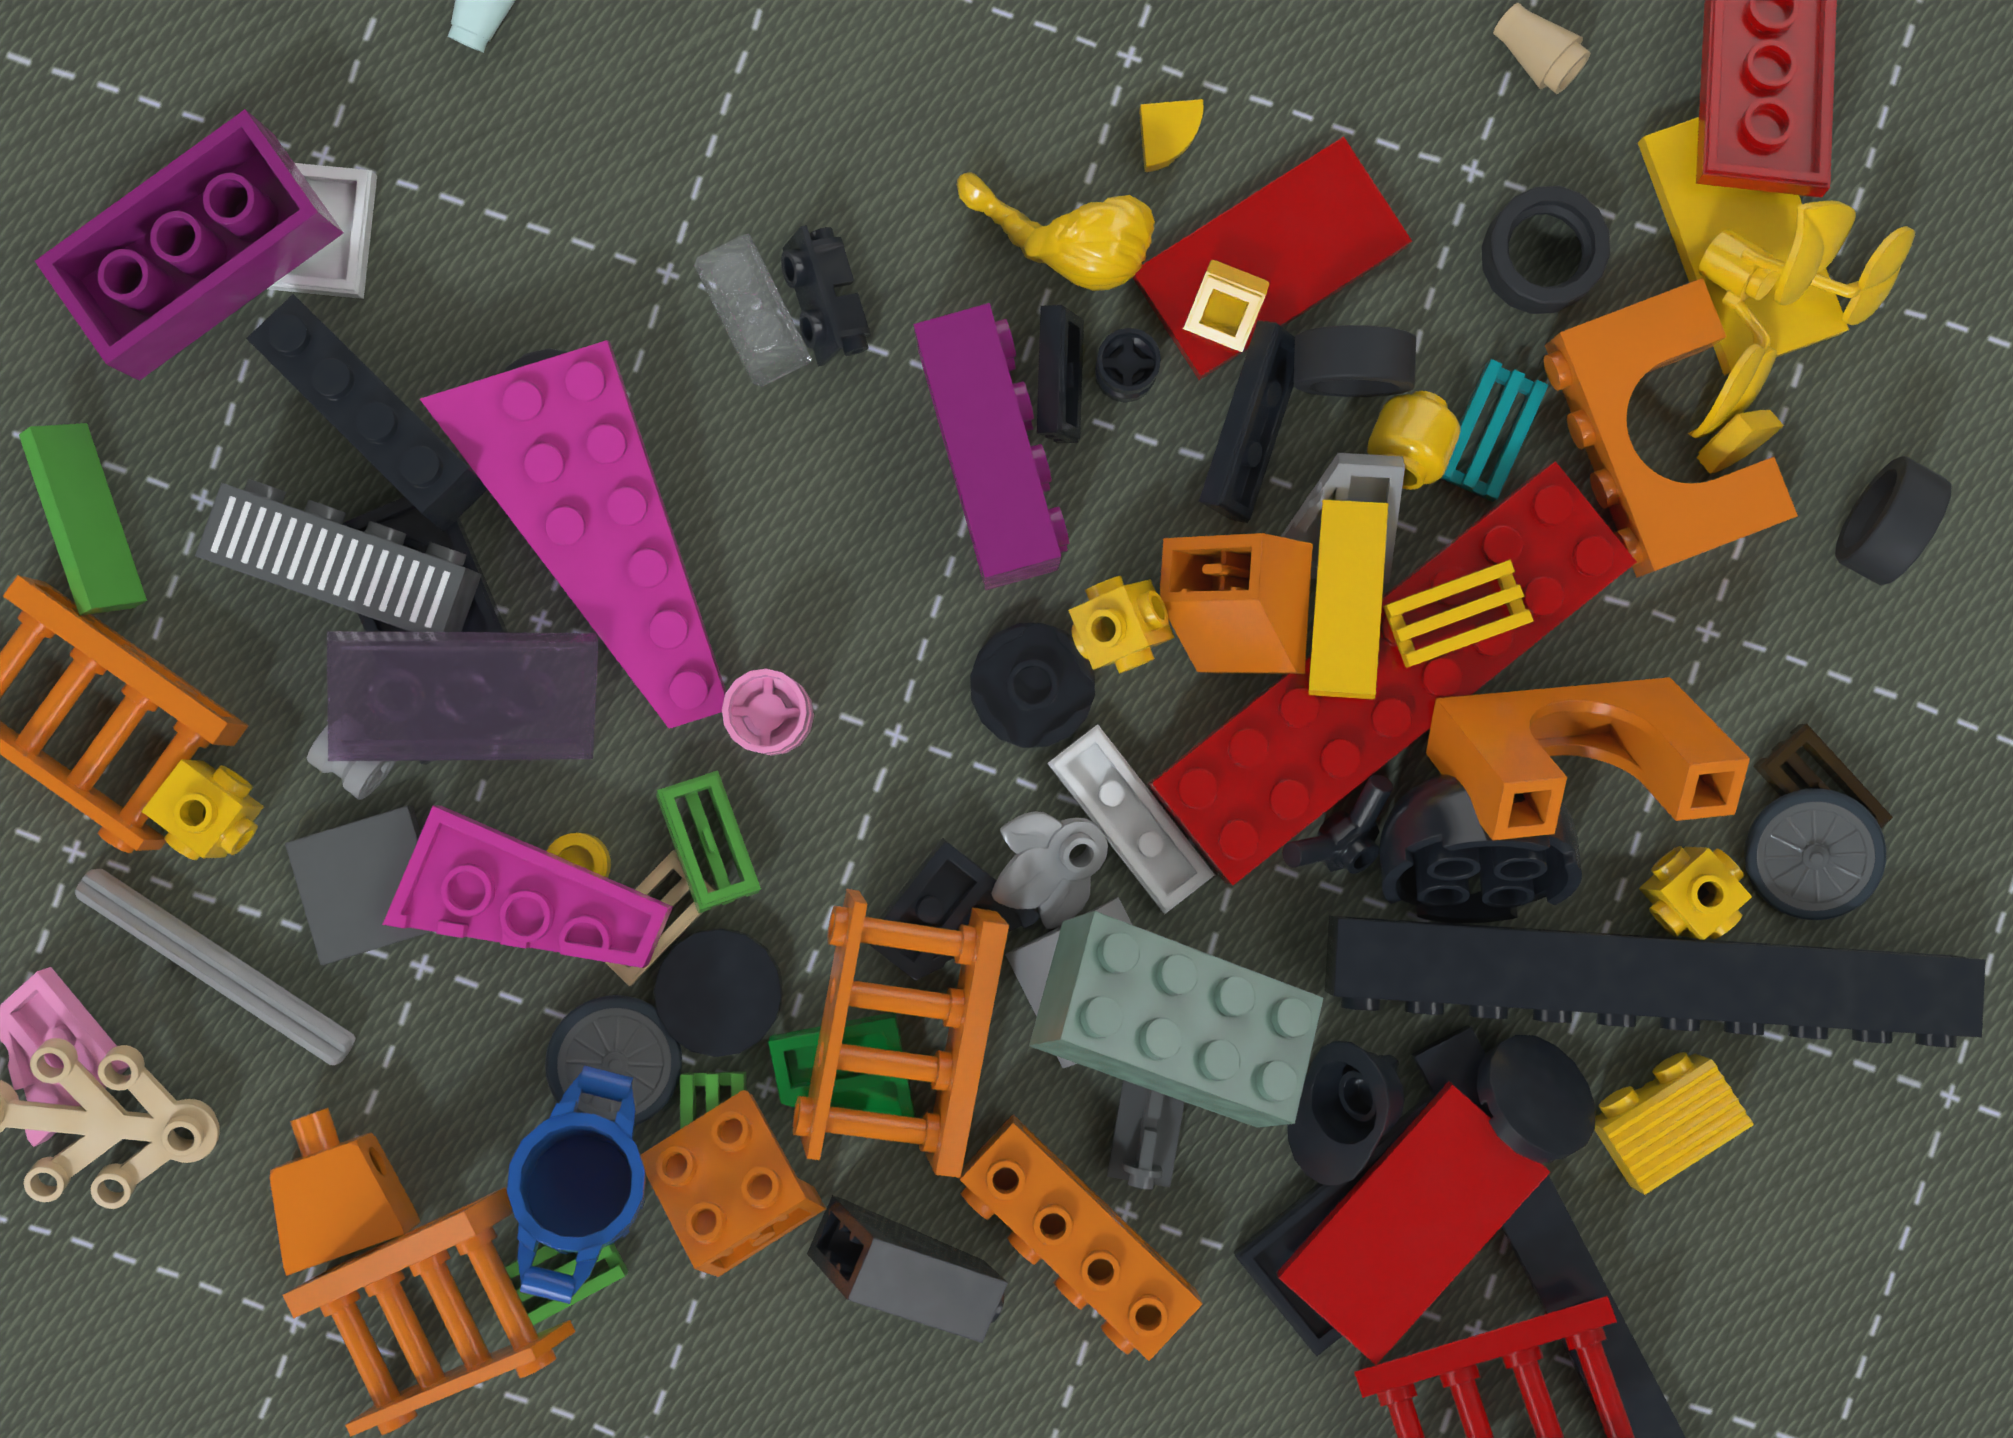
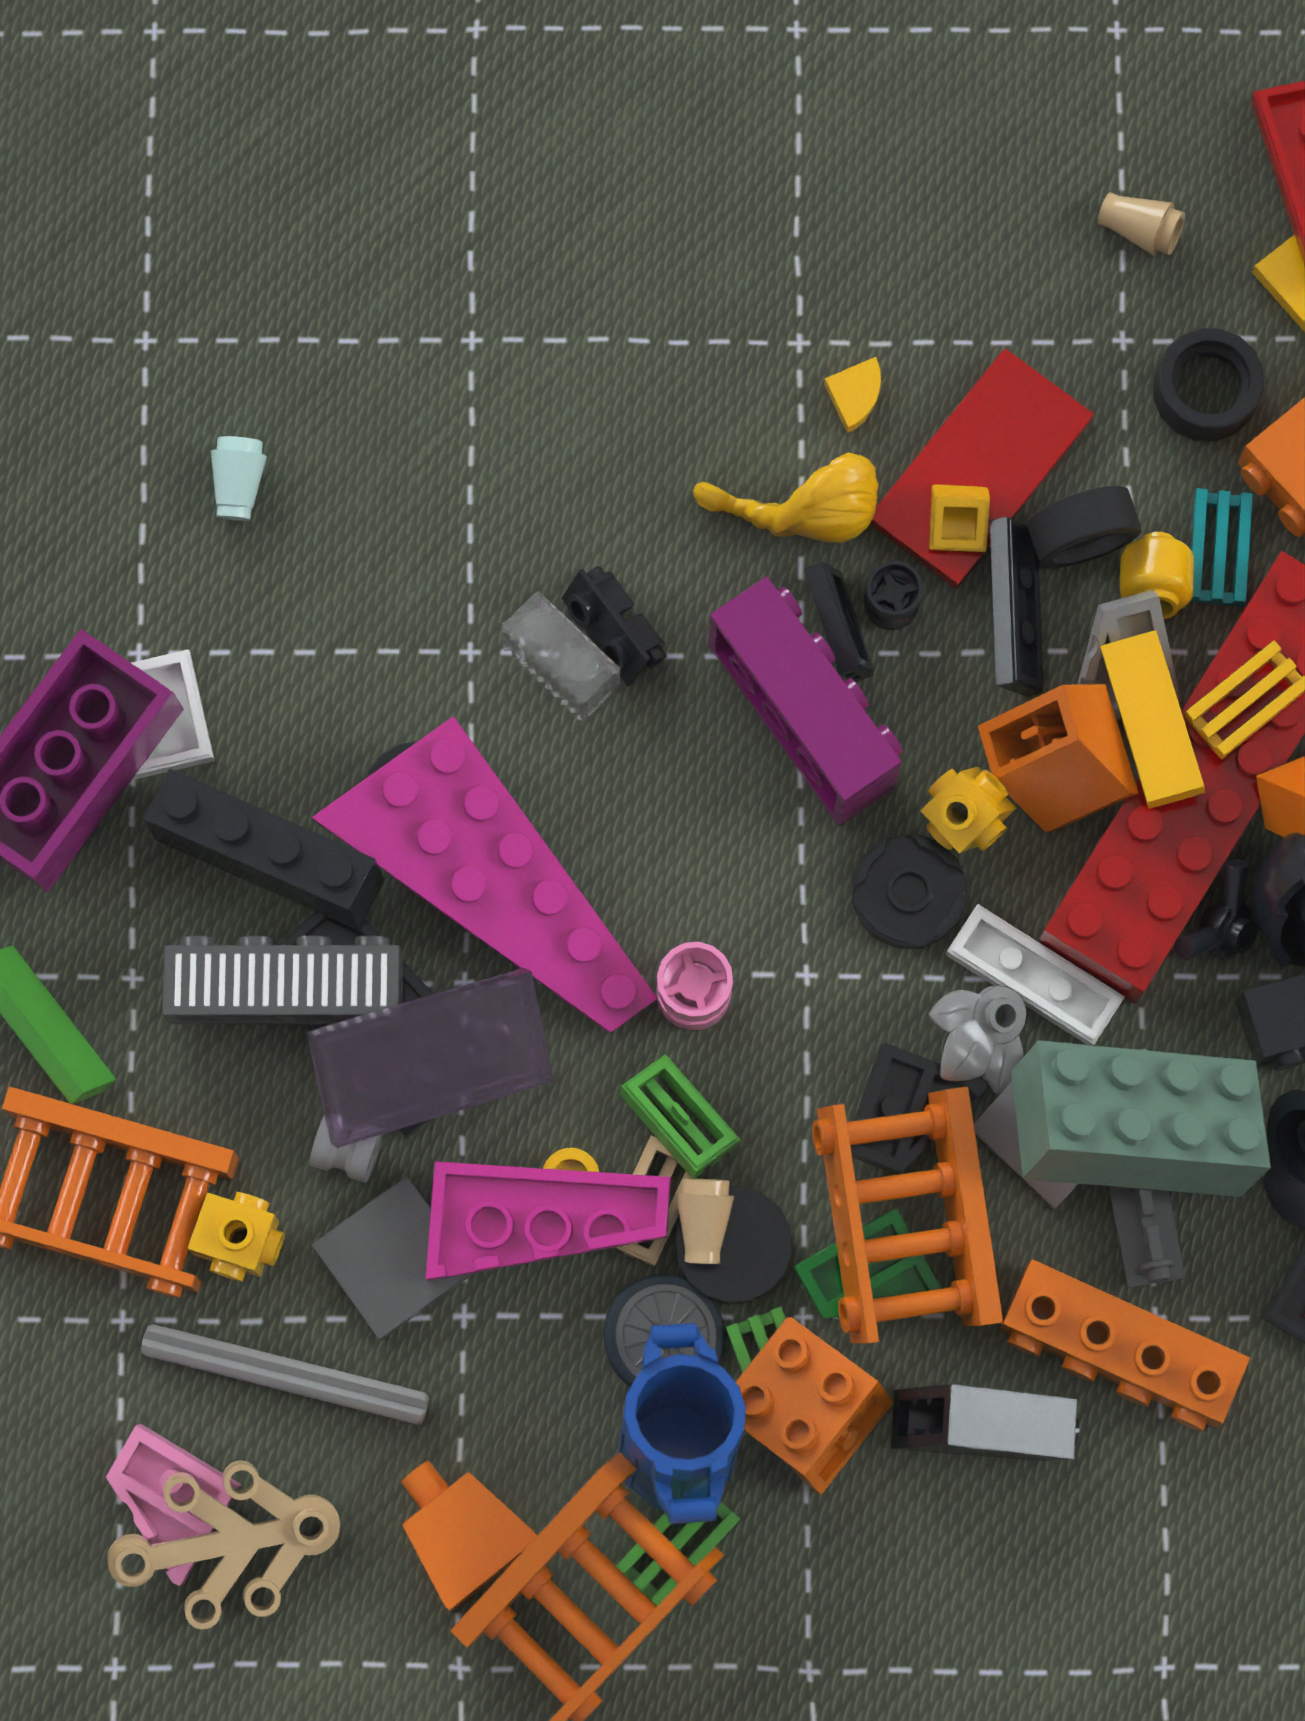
camera: 15 degrees left, 10 degrees down
(691, 959) = (704, 1217): none -> tan cone

